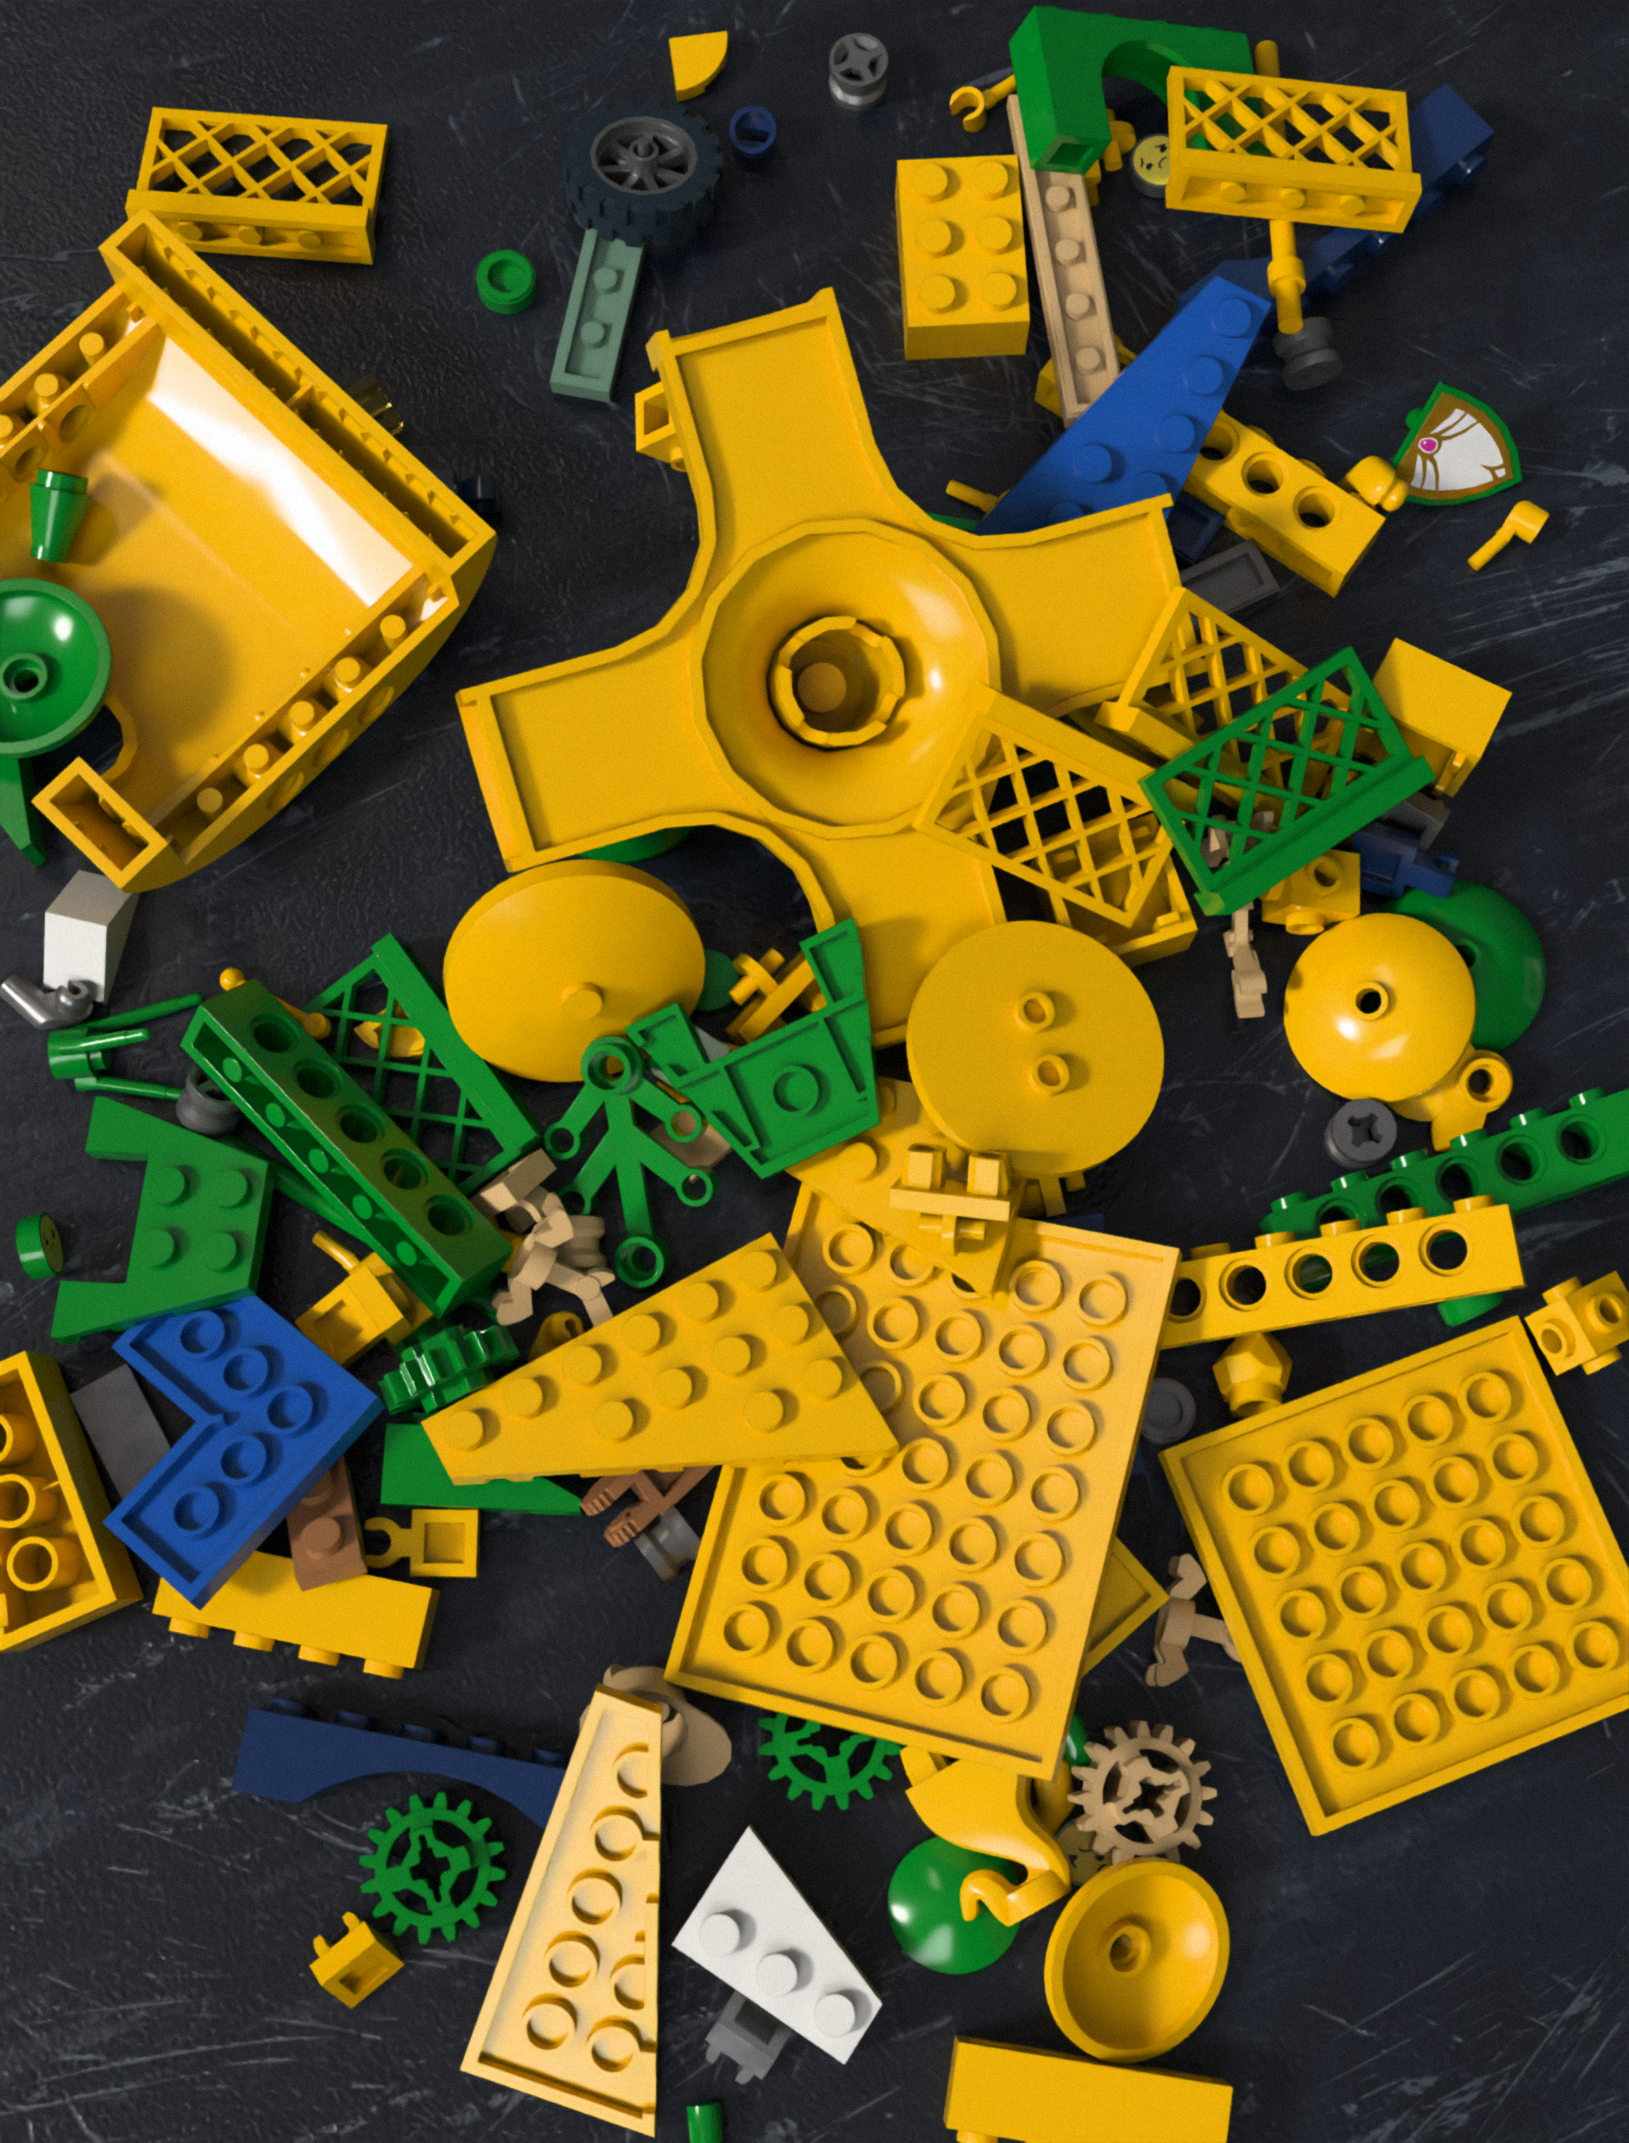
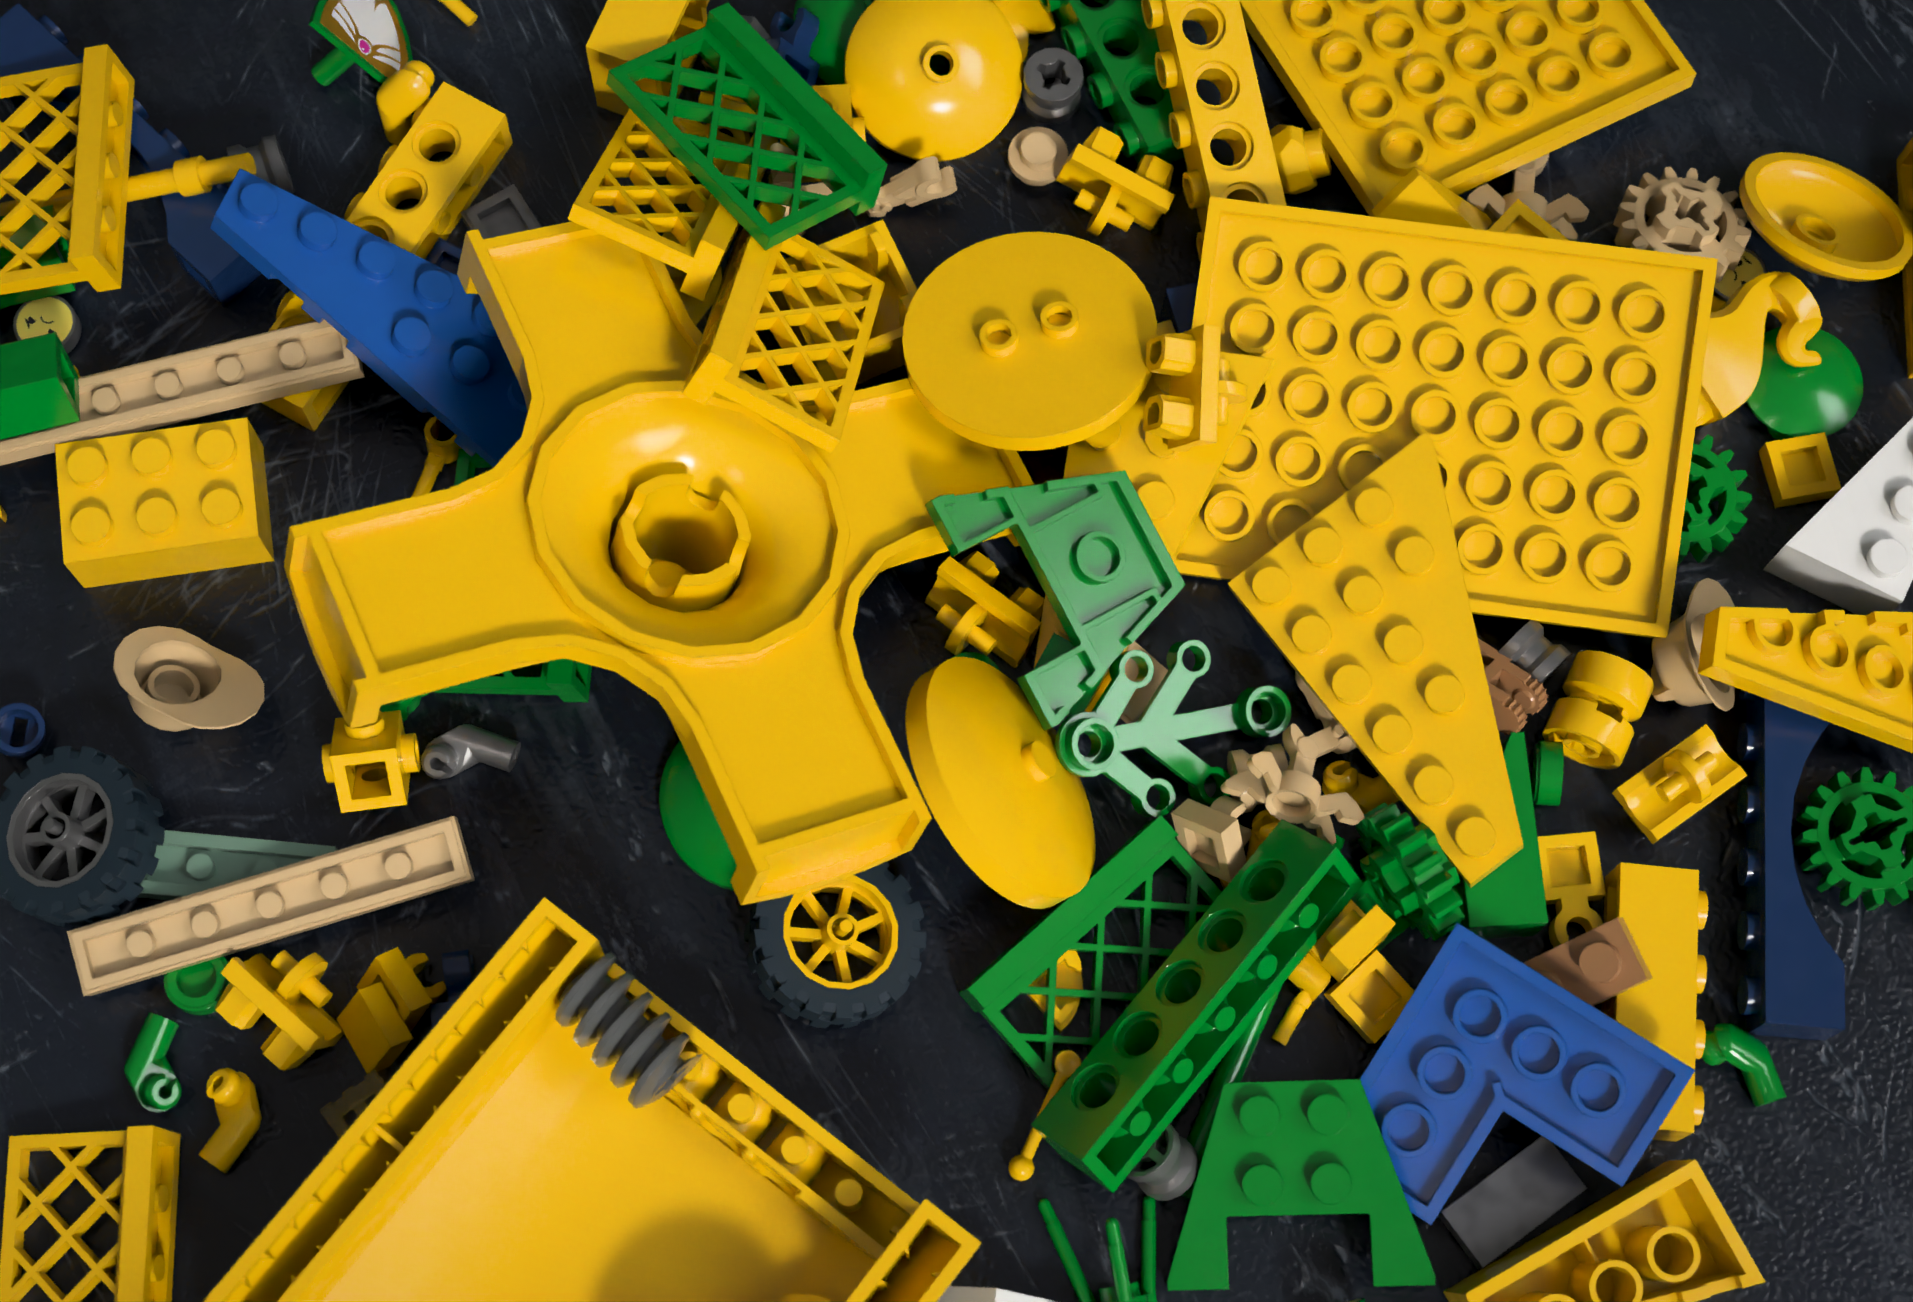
camera: 100 degrees left, 5 degrees down
(236, 1694) = (1750, 1056): none -> green arm
(372, 603) = (623, 1032): none -> dark grey piece
(379, 309) = (237, 1114): none -> yellow arm
(400, 831) = (842, 1001): none -> black wheel
(431, 237) = (148, 1067): none -> green arm
(436, 419) = (374, 1028): none -> yellow tile
(468, 439) = (402, 984): none -> yellow tile
(470, 345) = (286, 994): none -> yellow hips
(512, 1672) = (1678, 784): none -> yellow hips
(545, 1540) = (1547, 773): none -> green tile
(557, 337) = (270, 906): none -> tan tile
(622, 1613) = (1599, 704): none -> yellow wheel
(683, 501) = (466, 747): none -> flat silver arm
(778, 261) = (185, 682): none -> tan piece
(854, 1882) = (1799, 470): none -> yellow tile
(1158, 1505) = (1427, 201): none -> yellow slope
(1251, 1158) = (1113, 191): none -> yellow hips
(1280, 1111) = (1037, 155): none -> tan plate

